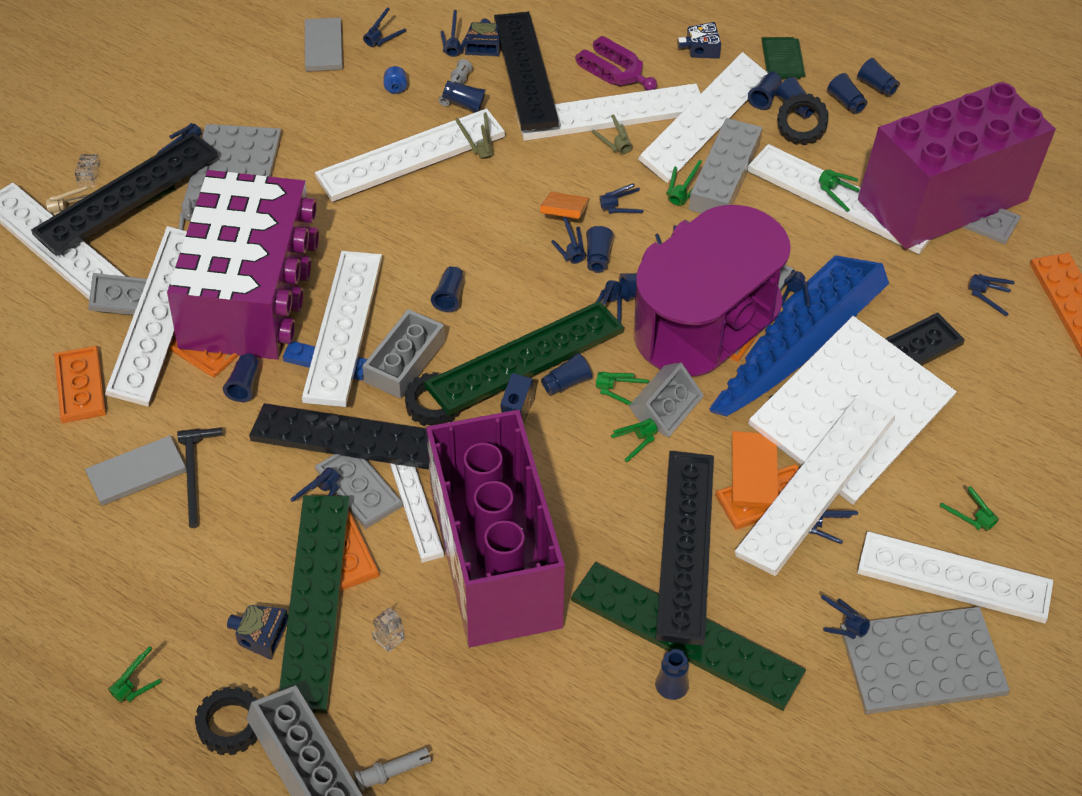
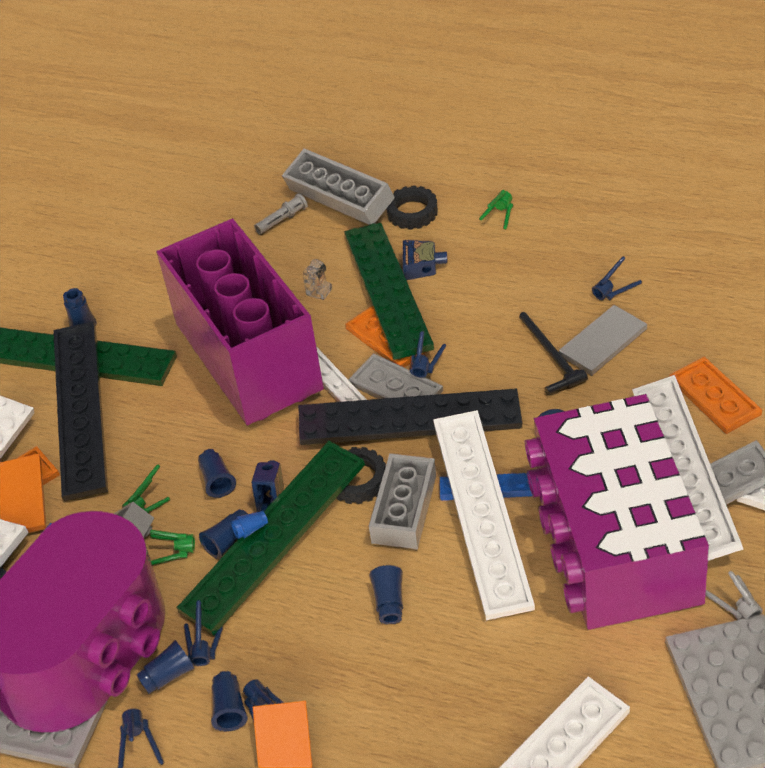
camera: 170 degrees right, 5 degrees down
(95, 523) = (604, 287): none -> dark blue plant
(545, 356) = (248, 524): none -> blue cone
(562, 433) = (216, 476): none -> dark blue plant

